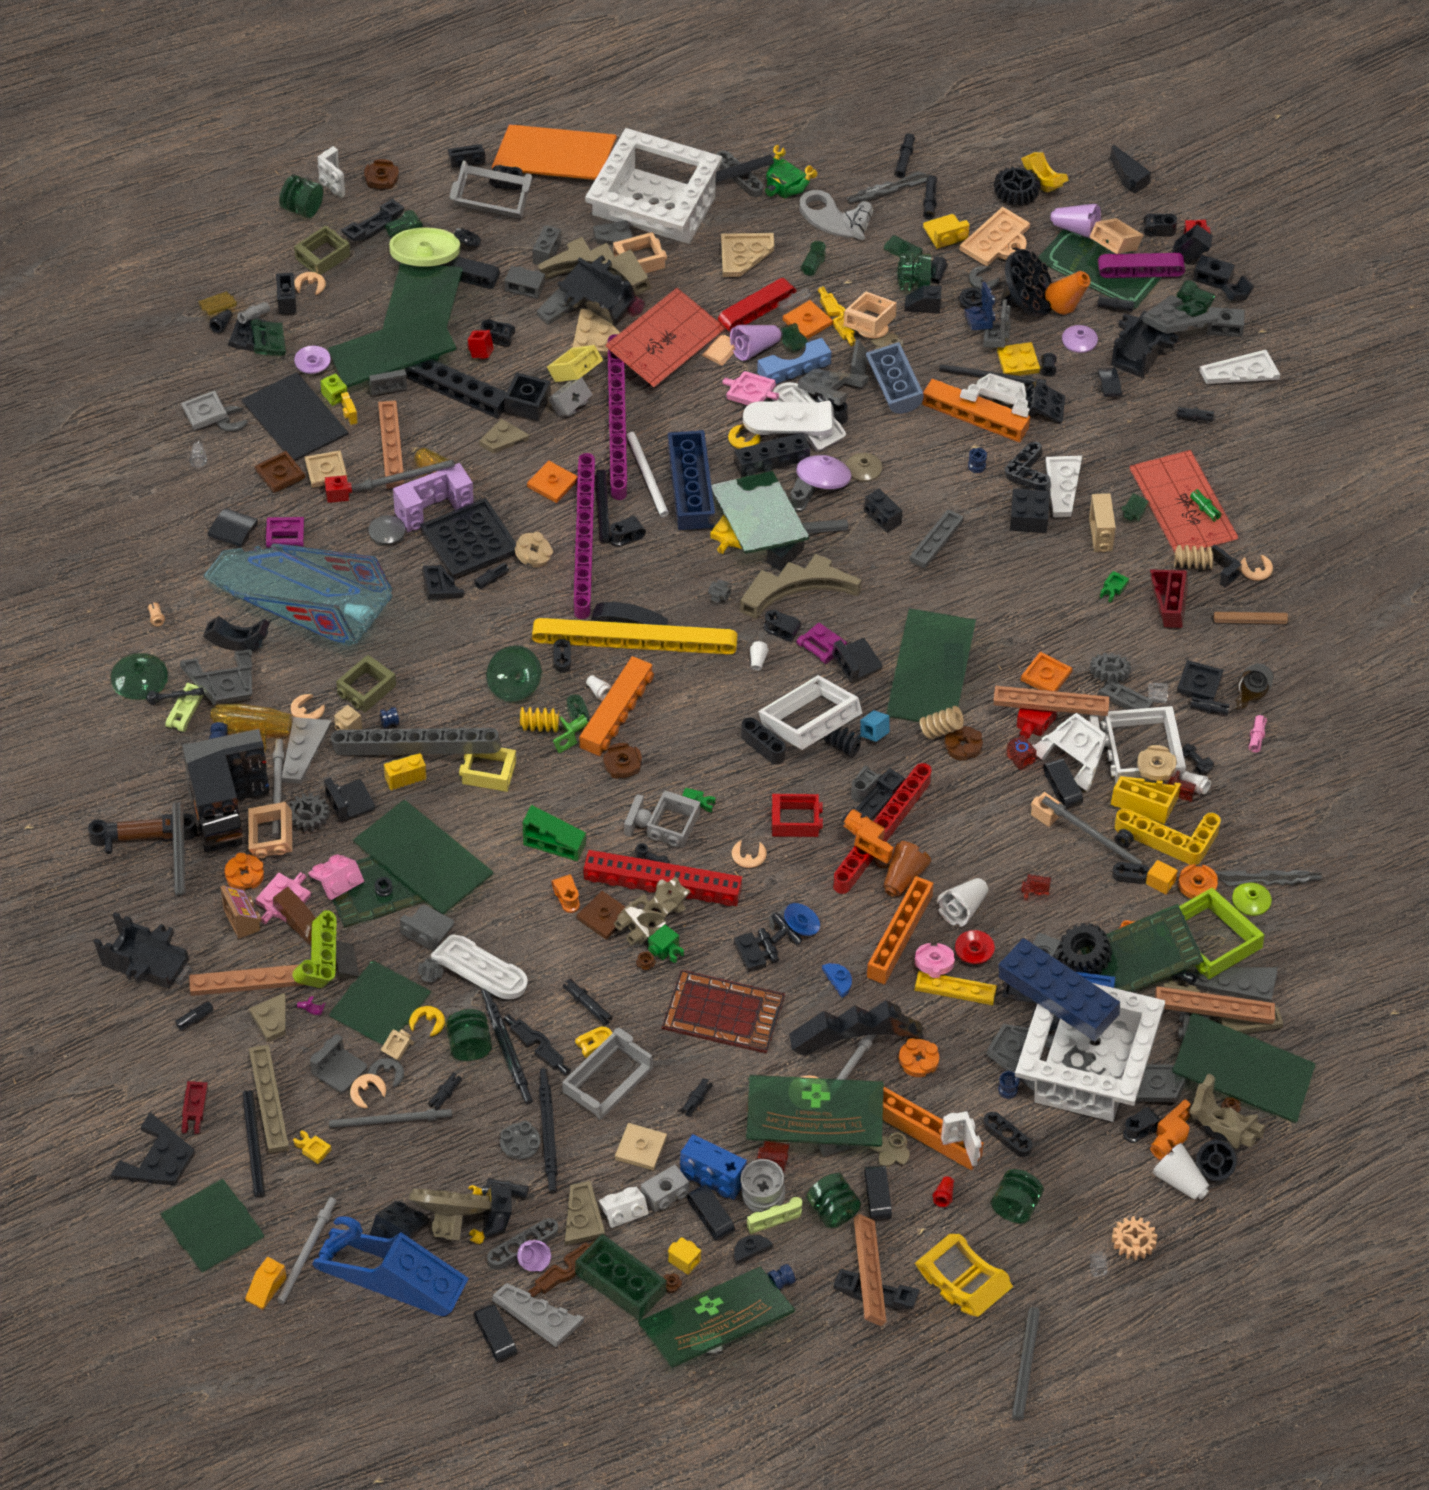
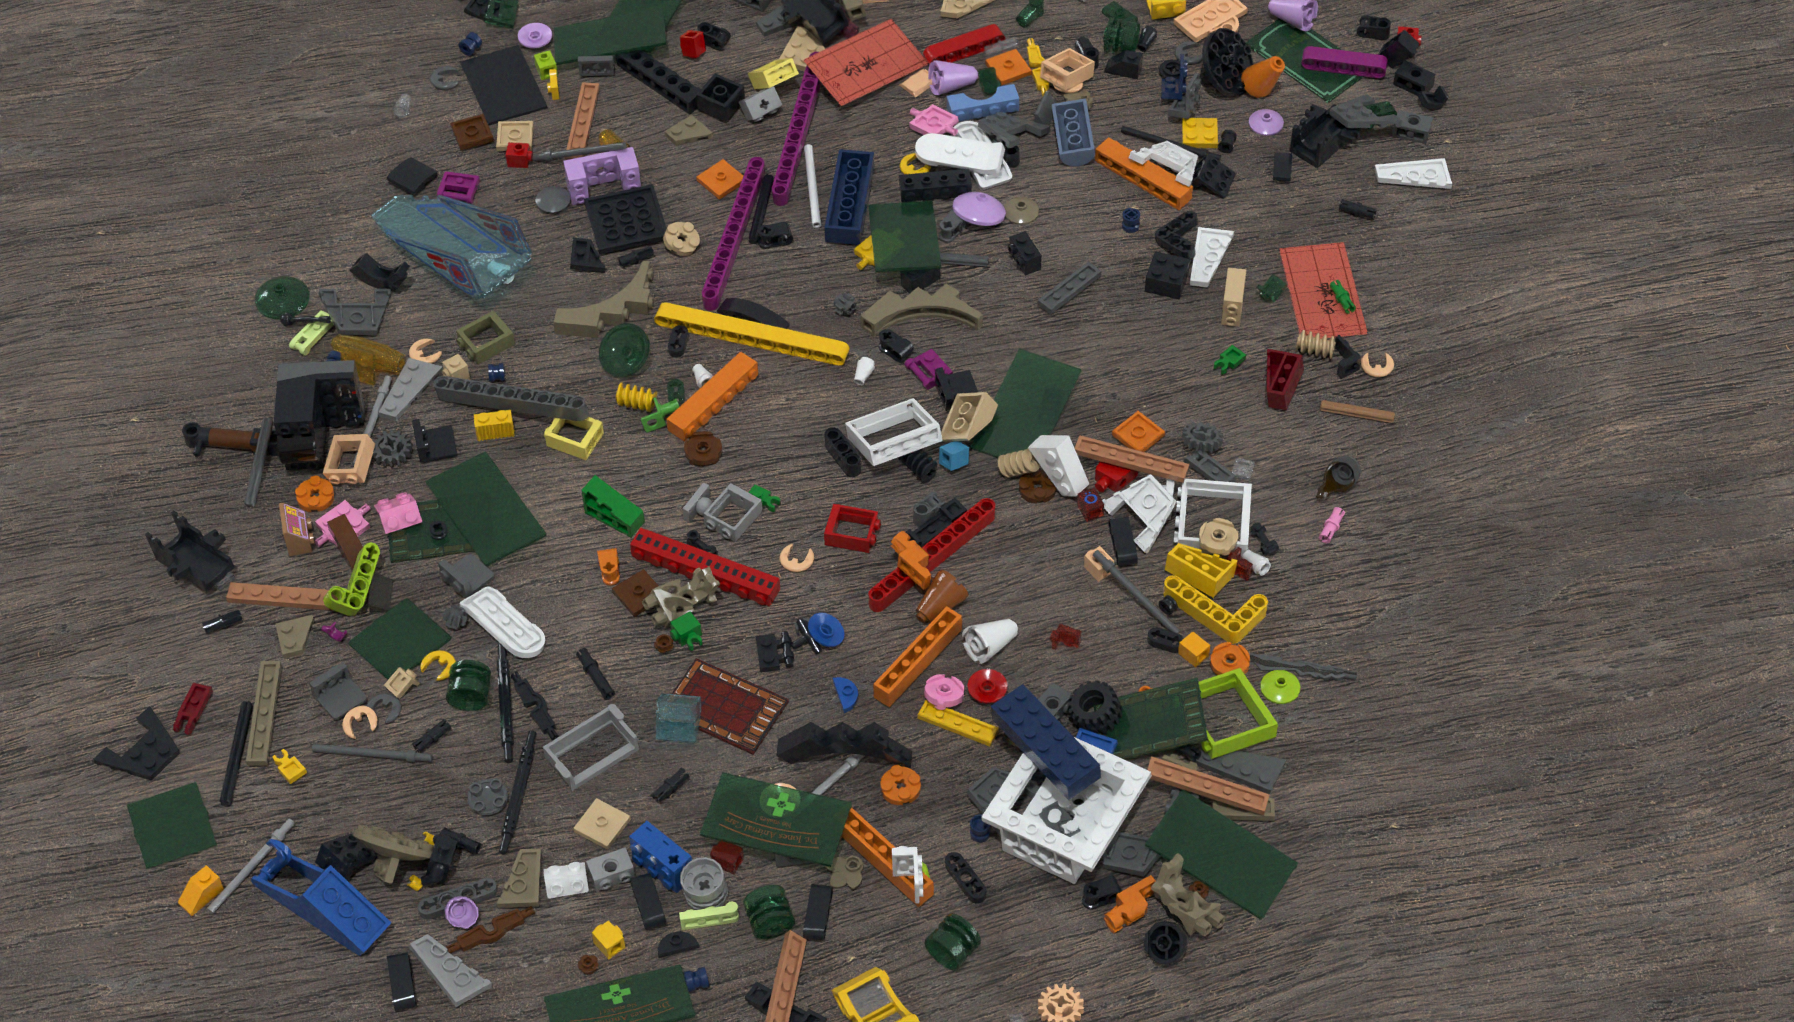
camera: 15 degrees right, 0 degrees up
(157, 617) = (315, 244): light nougat pin -> none
(204, 410) = (422, 66): light grey plate -> none
(247, 378) = (469, 44): none -> dark blue wheel
(468, 648) = (591, 319): none -> dark tan arch
(597, 1035) = (592, 707): yellow plate -> none
(620, 1277) = (538, 949): clear green brick -> none
(684, 1030) = (677, 717): none -> clear light blue slope
(879, 684) = (968, 416): none -> tan slope
(880, 289) = (1085, 48): none -> black piece
(944, 1192) = (883, 924): red cone -> none
(984, 716) = (1060, 463): none -> white wedge
(1115, 303) = (1310, 94): black pin -> none
(1120, 236) = (1329, 31): light nougat window -> none
(1182, 1173) = (1127, 949): white cone -> none
(1189, 291) = (1386, 92): clear green piece -> none
(1200, 680) = (1288, 464): black plate -> none
(1209, 706) = (1291, 490): black pin -> none

